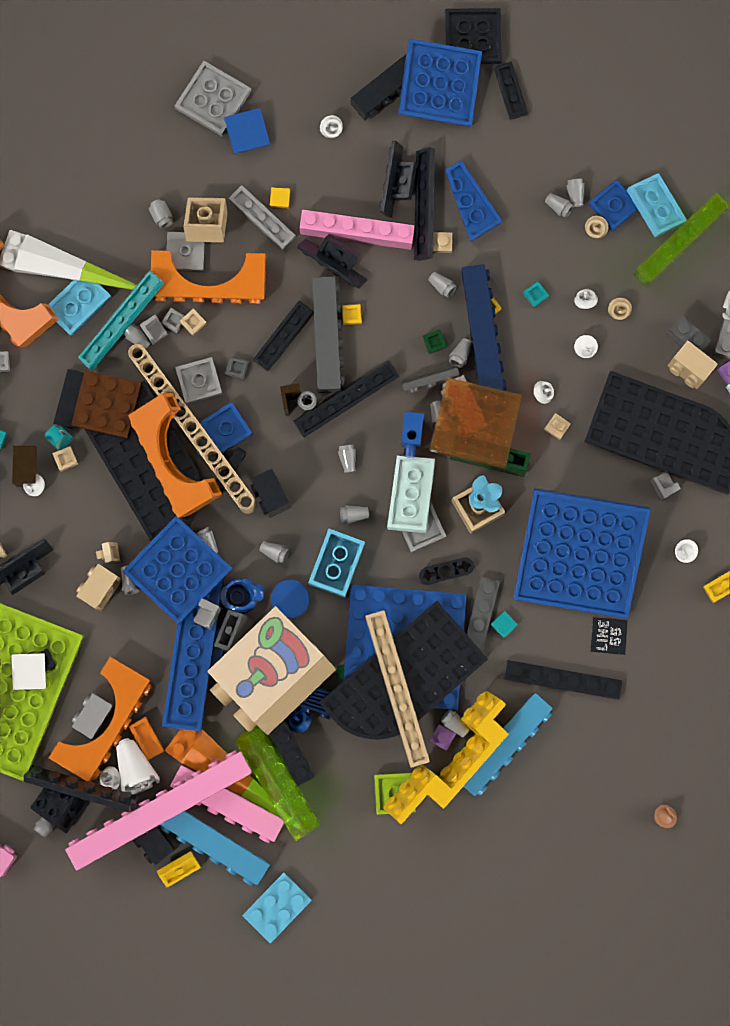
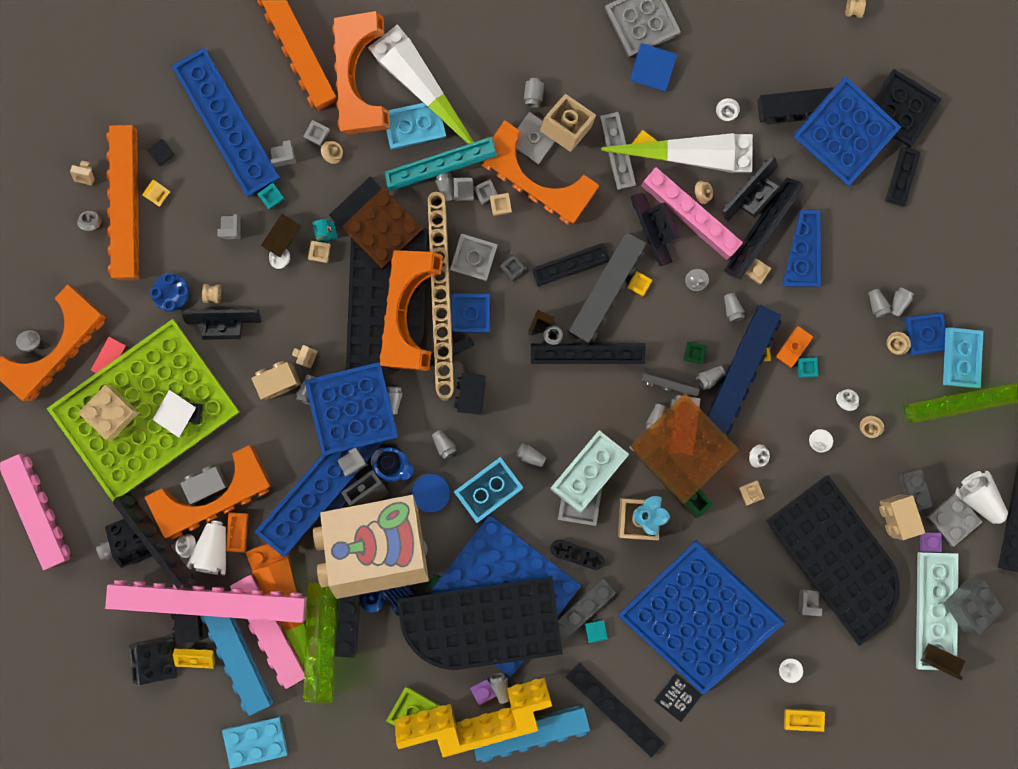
camera: 30 degrees right, 5 degrees up
(22, 369) = (332, 152): none -> tan hat
(144, 896) = (152, 662): none -> black bracket
(346, 166) = (718, 152): none -> white plate
(347, 456) = (556, 404): light grey cone -> none
(355, 205) = (703, 192): none -> tan hat
(397, 280) = (697, 279): none -> light grey hat
(397, 689) = (469, 631): tan plate -> none
(411, 426) = (630, 414): blue torso -> none
(513, 284) = (794, 347): none -> orange plate

